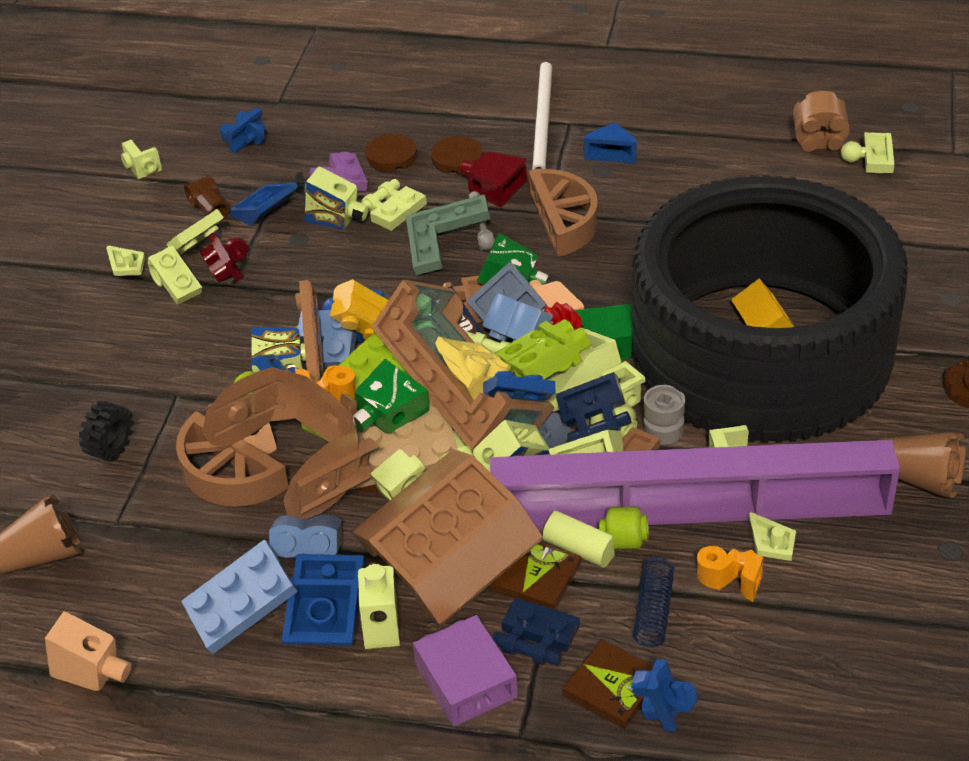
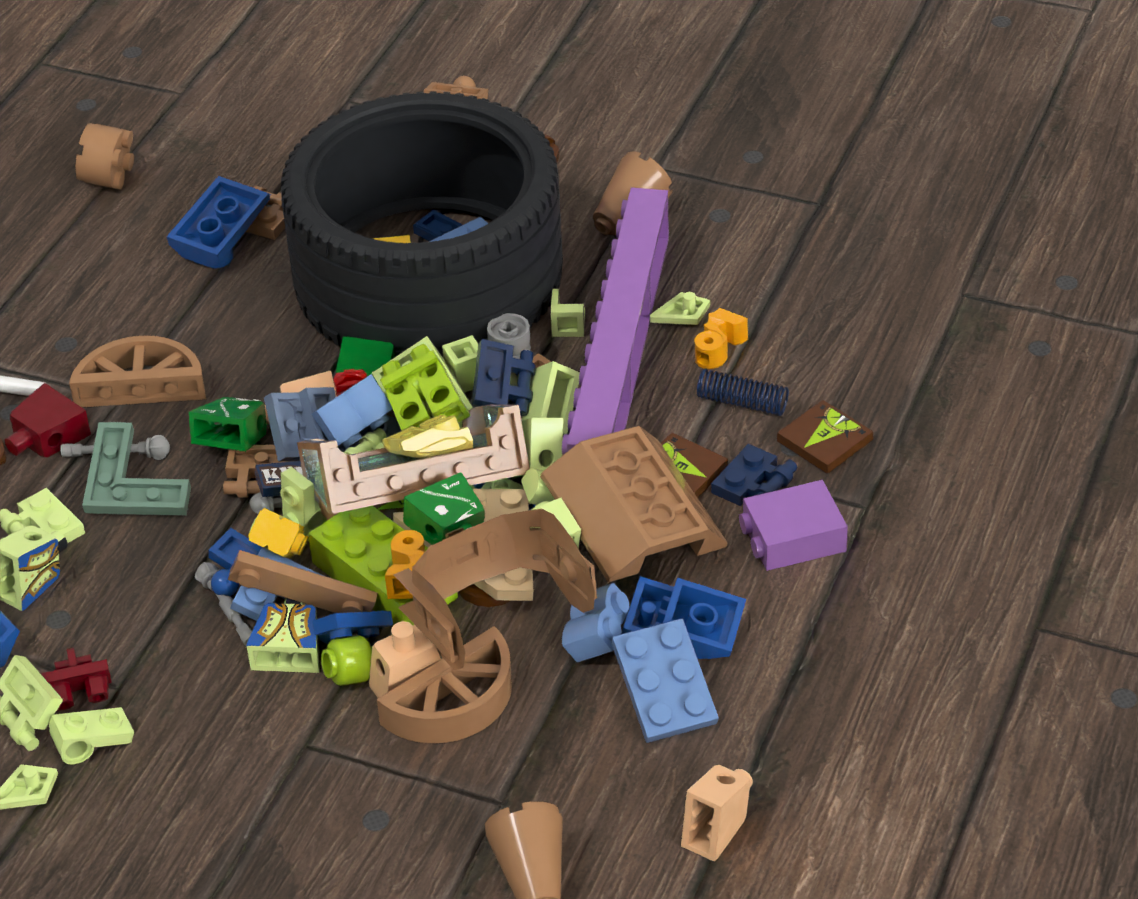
camera: 80 degrees left, 0 degrees up
(106, 431) = (374, 787): black tyre -> none
(378, 593) = (708, 562): yellowish green torso -> none
(521, 387) = (483, 403): blue plate -> none
(579, 538) = (662, 419): yellowish green brick -> none
(610, 145) = (41, 319): blue slope -> none
(626, 526) = (651, 393): lime head -> none
(663, 694) = (862, 392): blue hips -> none
(876, 151) = (159, 136): yellowish green plate -> none

